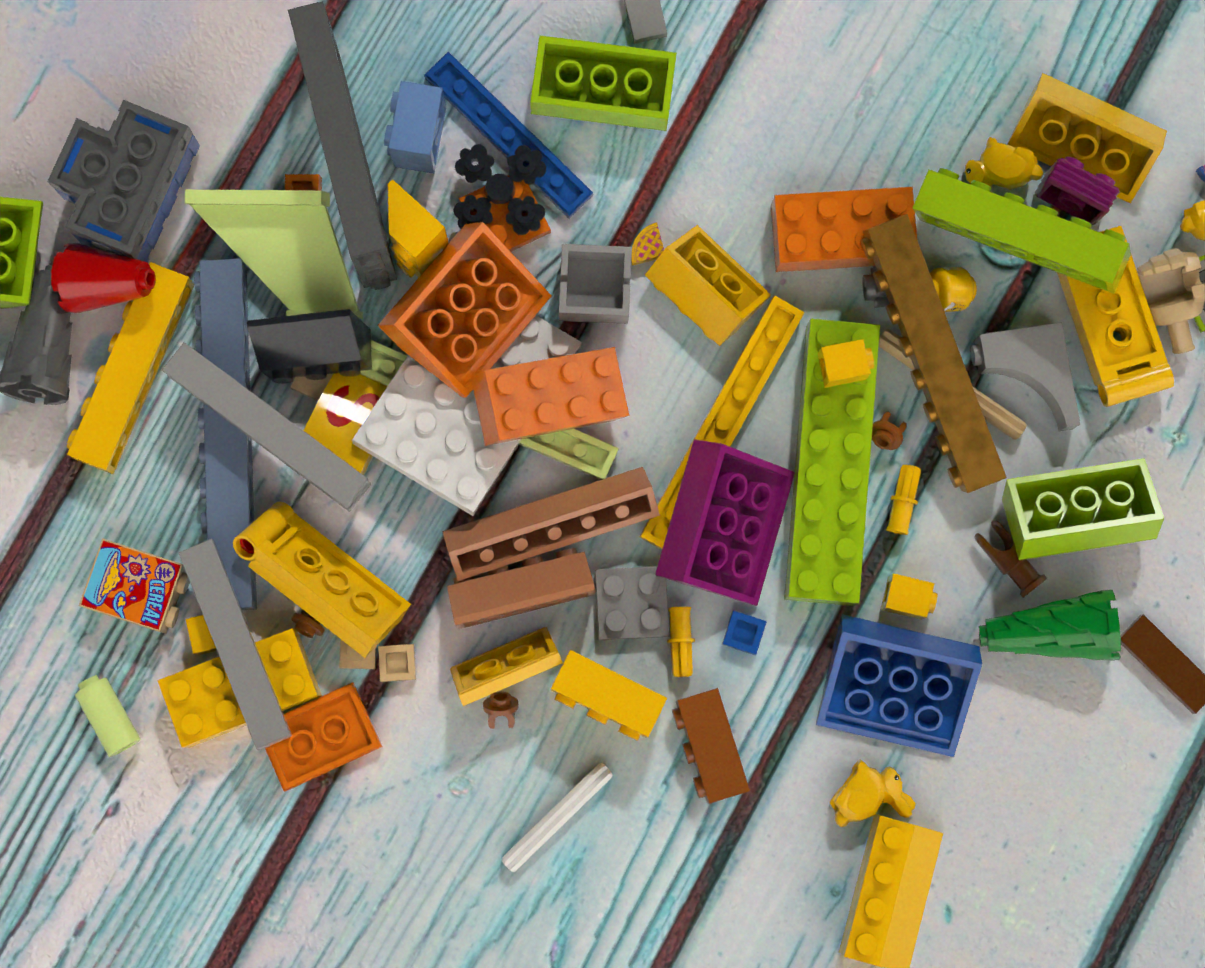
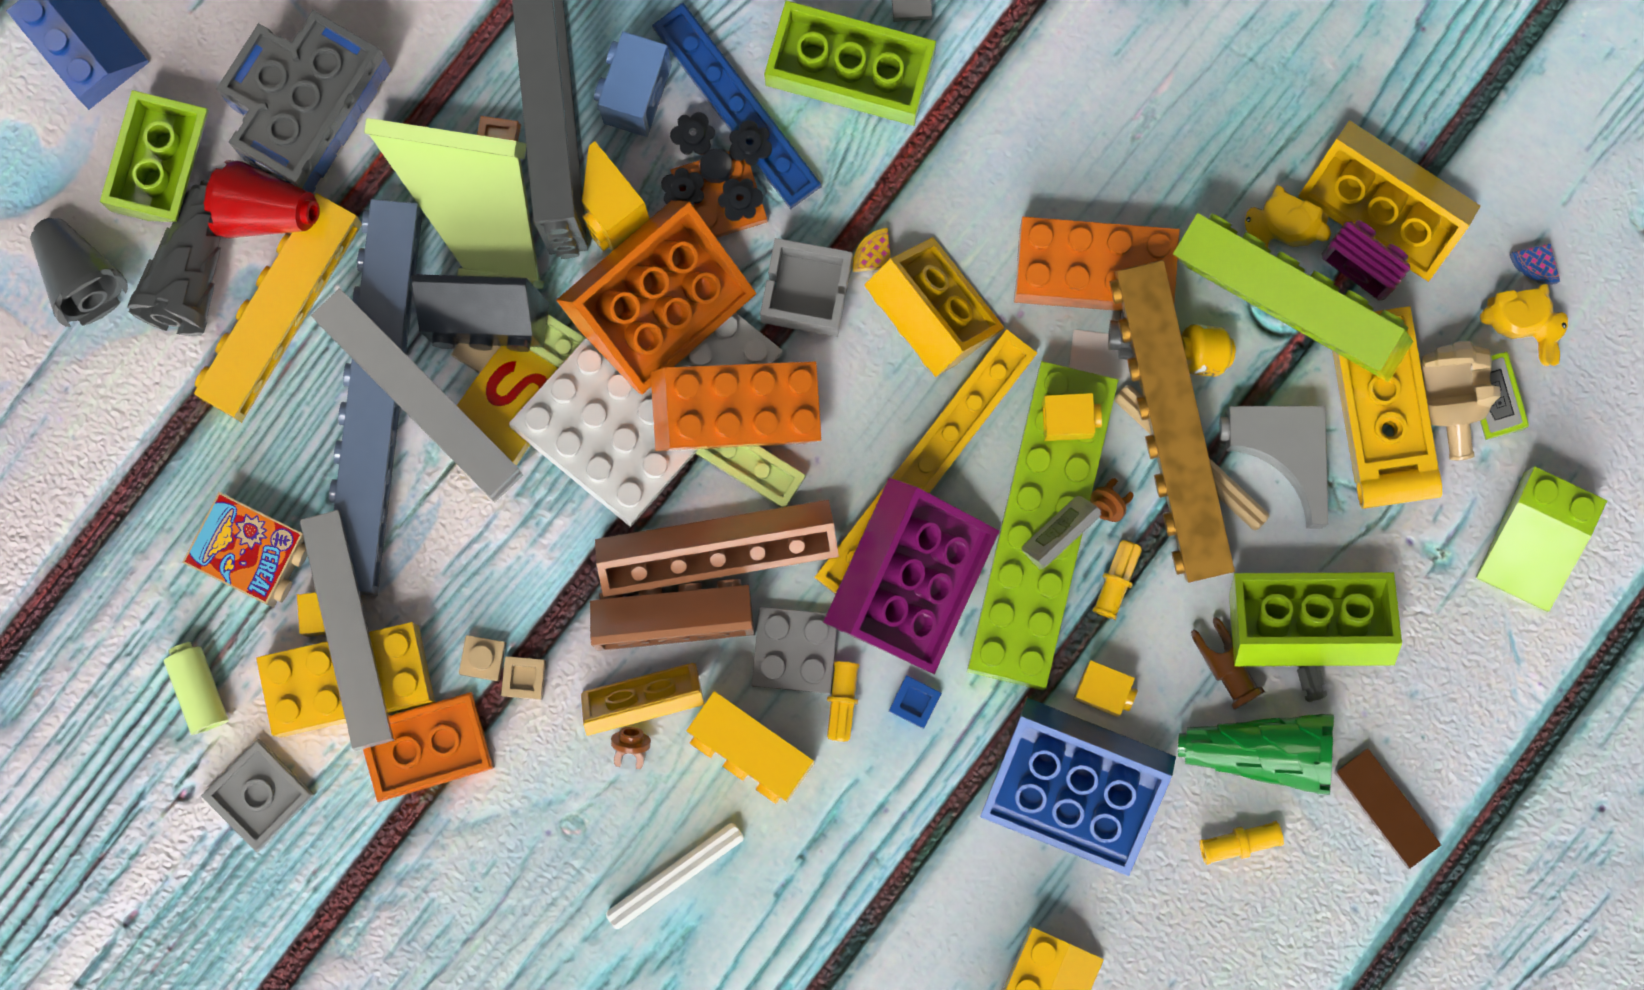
camera: 20 degrees right, 0 degrees up
(176, 802) = (257, 795): none -> light grey tile
(307, 624) = (433, 616): dark orange plate -> none
(320, 578) = (452, 571): yellow hinge -> none
(710, 746) = (856, 822): dark orange brick -> none
(850, 306) = (1092, 355): none -> white sticker
(852, 464) = (1061, 531): none -> slope
(865, 793) = (1024, 900): yellow animal -> none
(1047, 713) = (1241, 842): none -> yellow pin
(1086, 564) = (1312, 682): none -> dark grey piece

